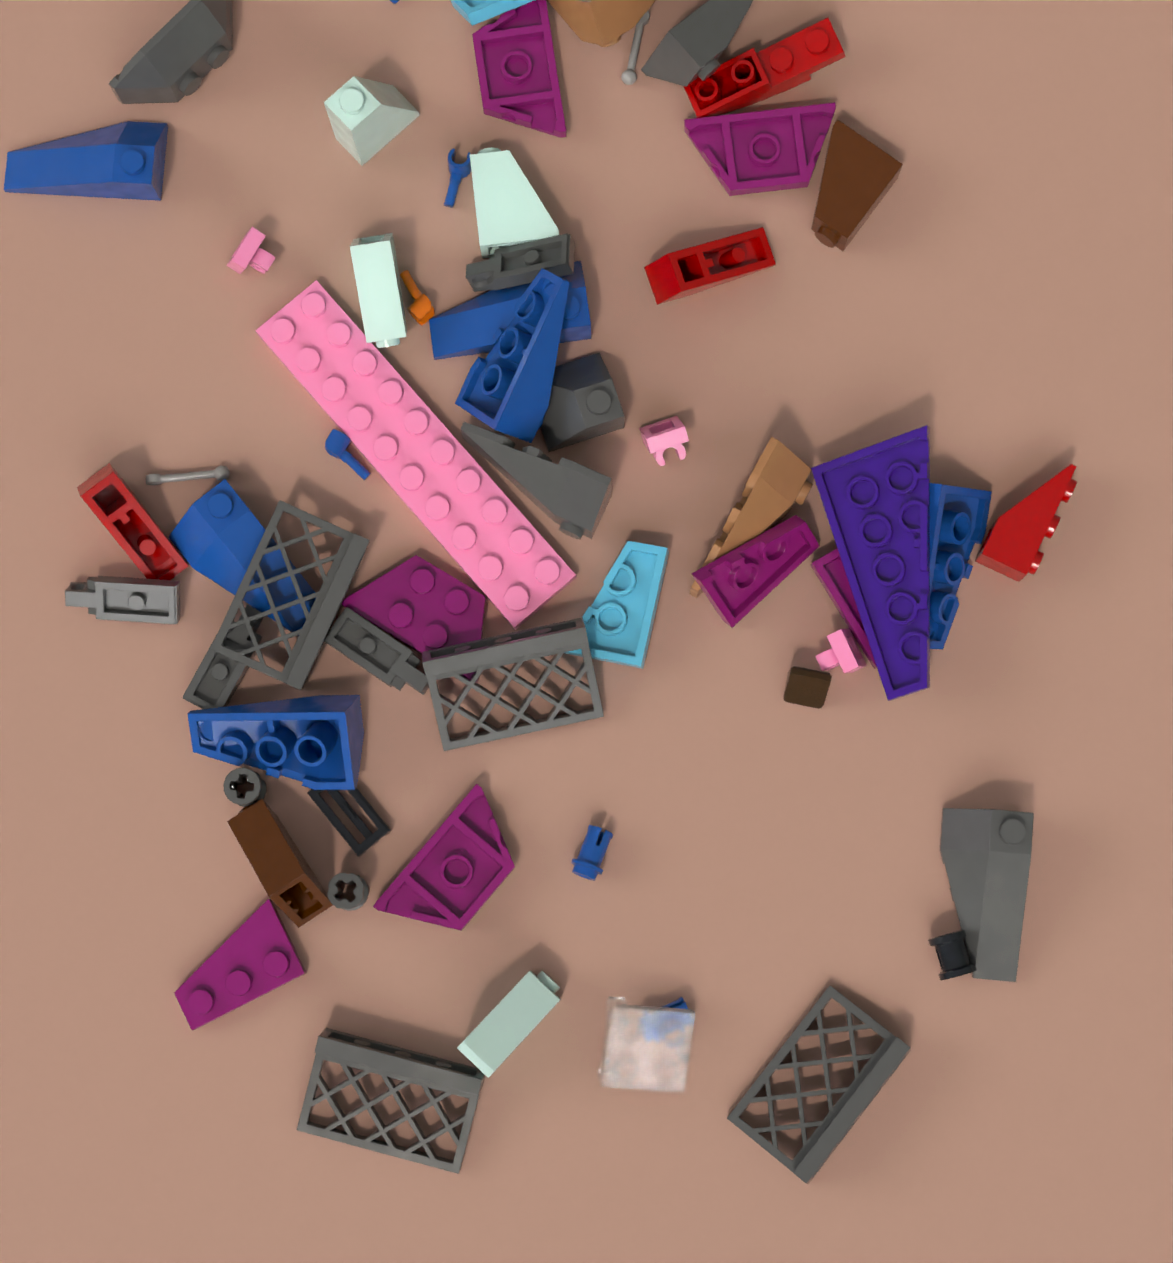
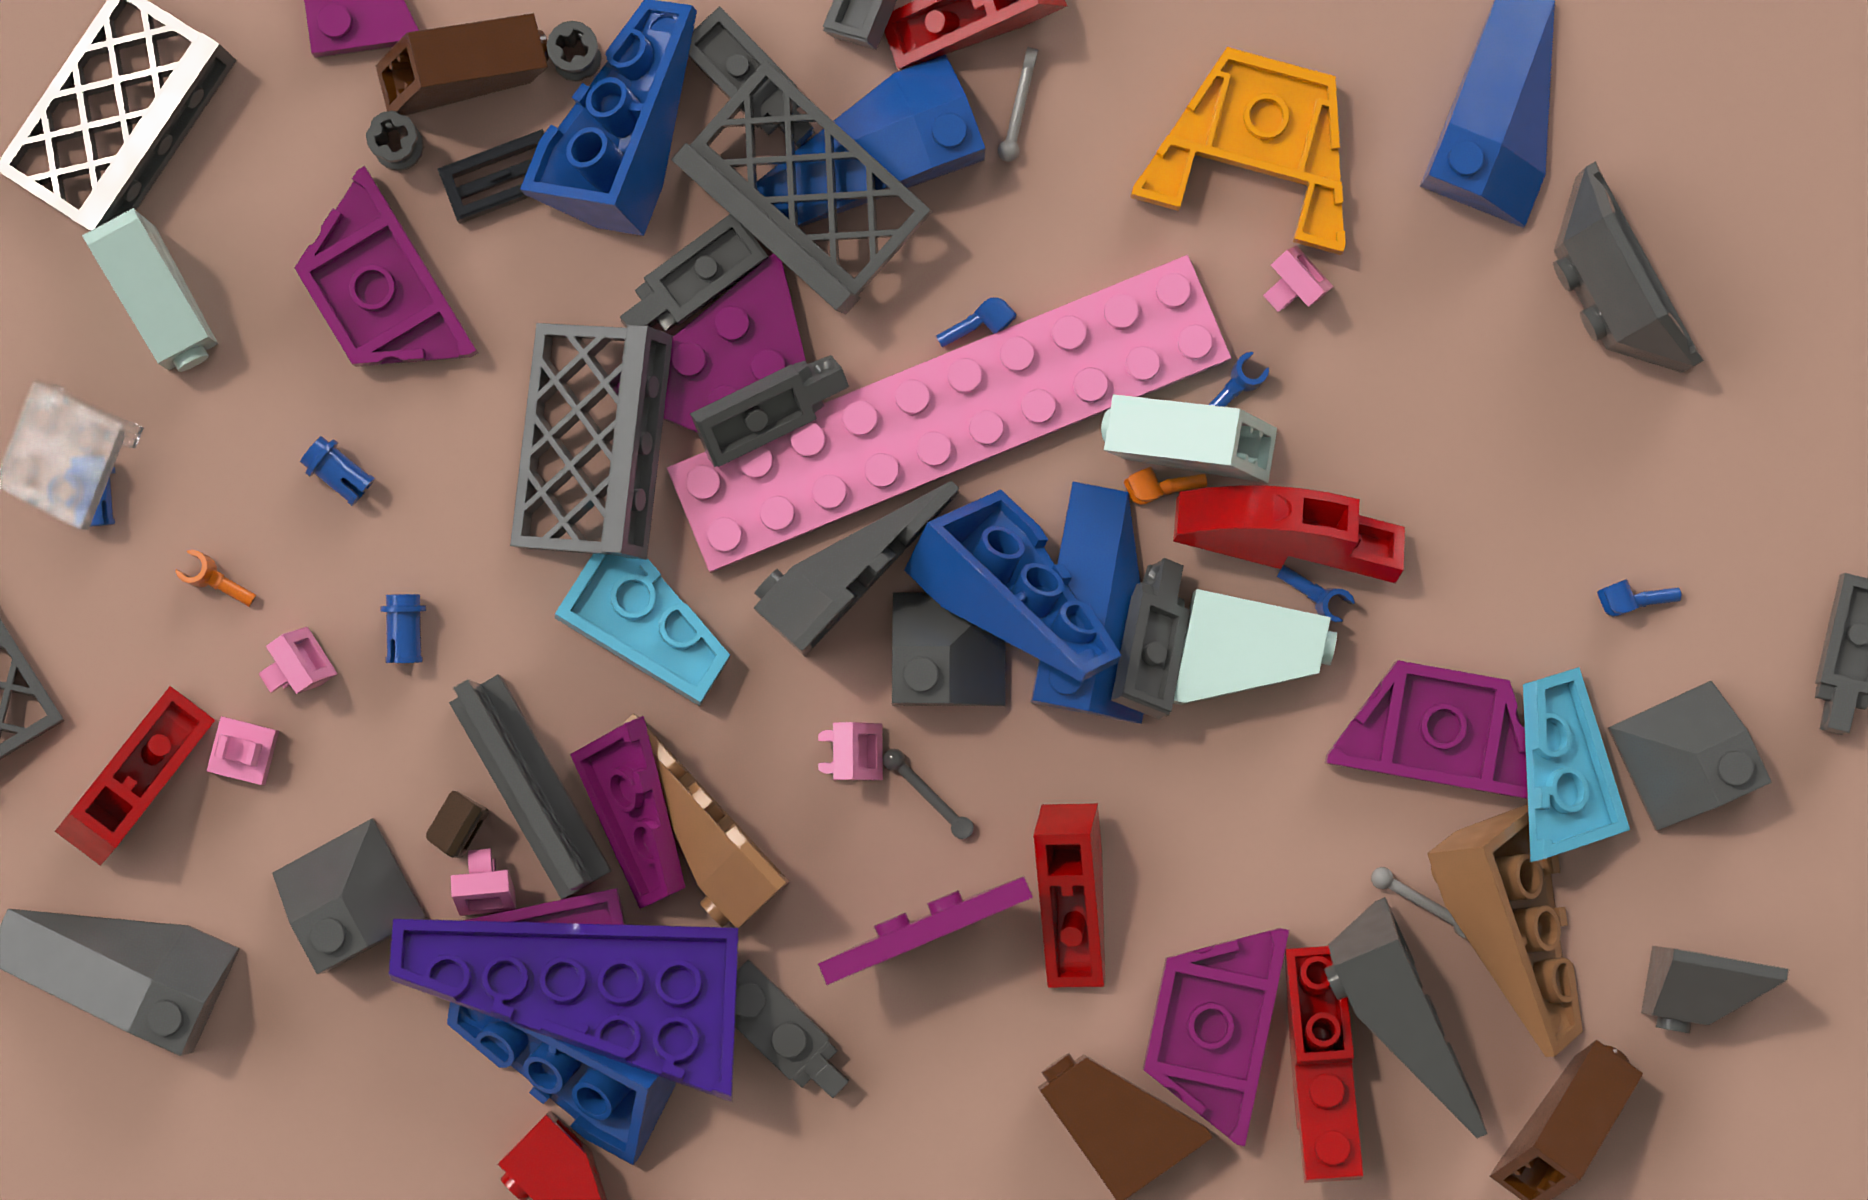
camera: 100 degrees right, 5 degrees up
(148, 309) = (1264, 121): none -> light orange wing
(331, 272) = (1238, 383): none -> blue hand
(368, 116) = (1433, 503): light aqua slope -> none
(416, 208) = (1278, 522): none -> red slope
(452, 568) = (767, 409): none -> dark grey hinge
(685, 769) = (403, 628): none -> blue pin
(689, 356) = (960, 826): none -> dark grey hinge
(696, 910) = (215, 579): none -> orange hand
(734, 833) = (297, 663): none -> bright pink tile
(765, 645) = (529, 785): none -> dark grey fence
(766, 344) = (901, 935): none -> magenta wing
(807, 852) = (242, 750): none -> bright pink tile
(854, 918) = (135, 776): none -> red slope
(869, 417) = (784, 1032): none -> dark grey hinge
(882, 744) = (345, 896): none -> dark grey slope
(952, 955) = (44, 889): black bush -> none

